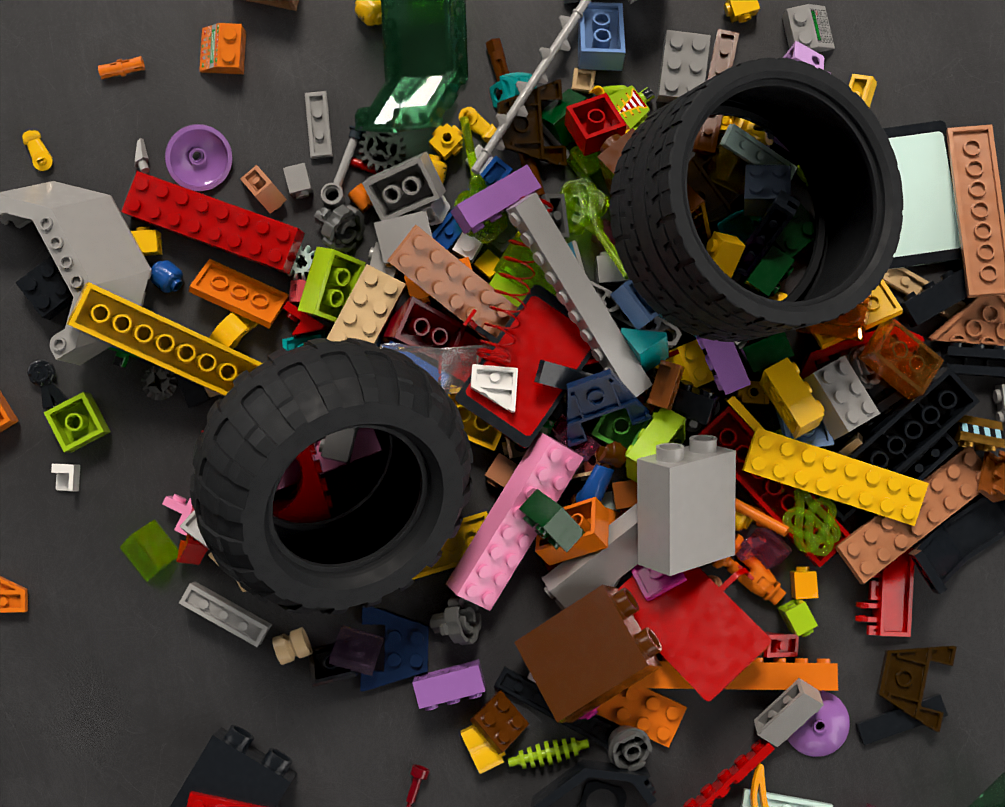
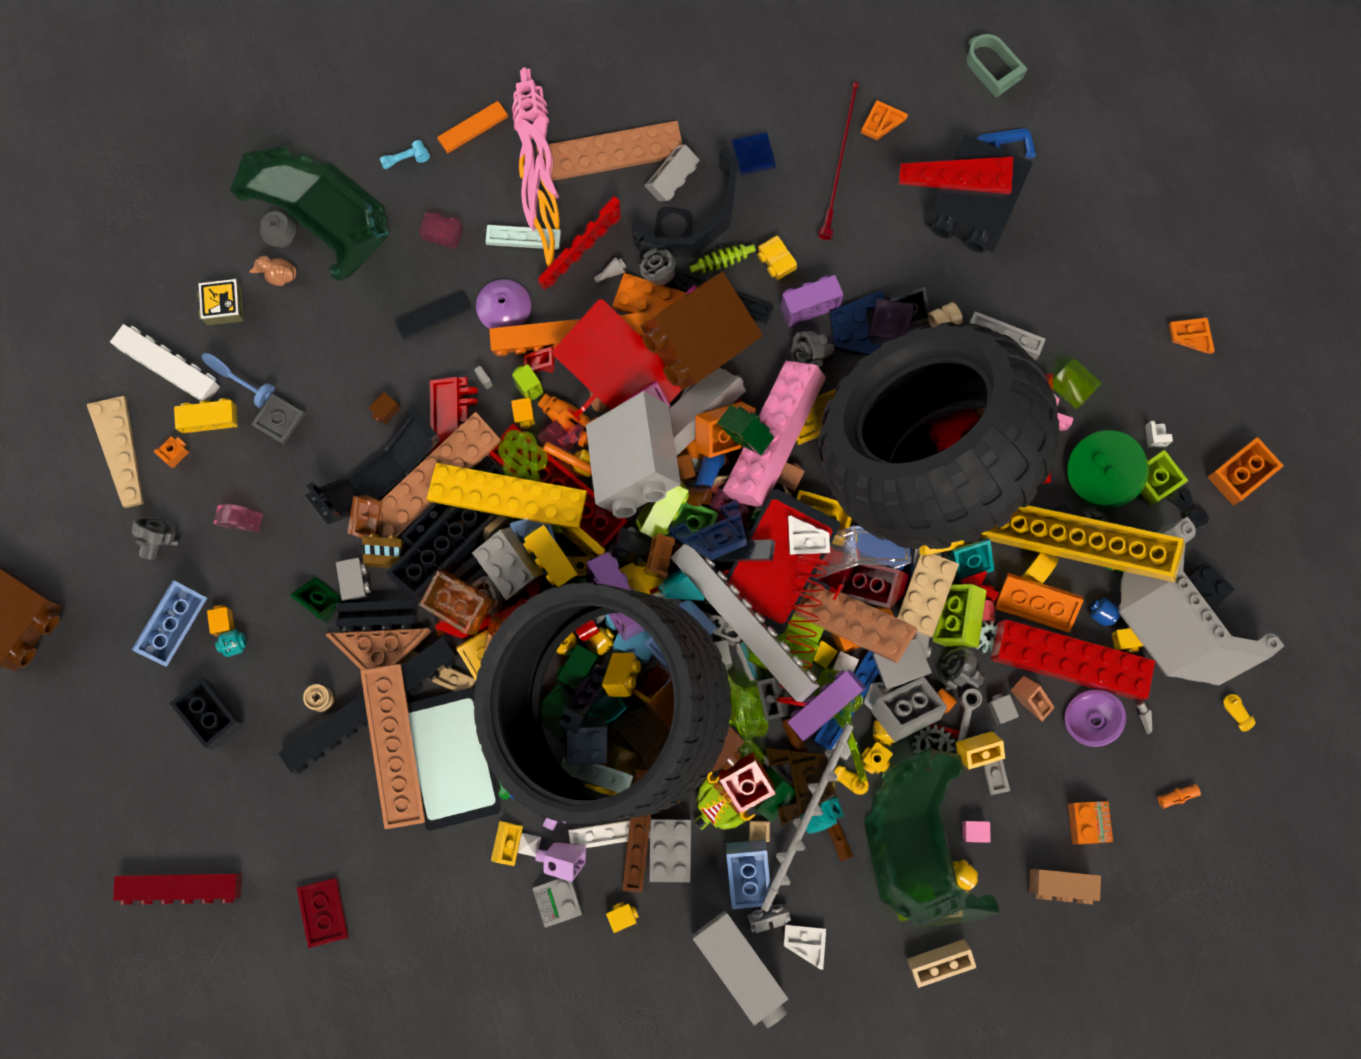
camera: 175 degrees right, 10 degrees down
(133, 437) = (1108, 469): none -> green brick
(332, 134) = (980, 750): none -> yellow brick
(349, 51) = (975, 831): none -> bright pink panel
(499, 722) = (766, 276): reddish brown plate -> none
(678, 755) = (614, 268): none -> light grey cone
(788, 712) = (529, 306): light grey brick -> none
(847, 632) = (483, 377): none -> light grey tile
(905, 677) = (432, 347): dark brown wing -> none
(967, 606) = (384, 408): none -> reddish brown brick

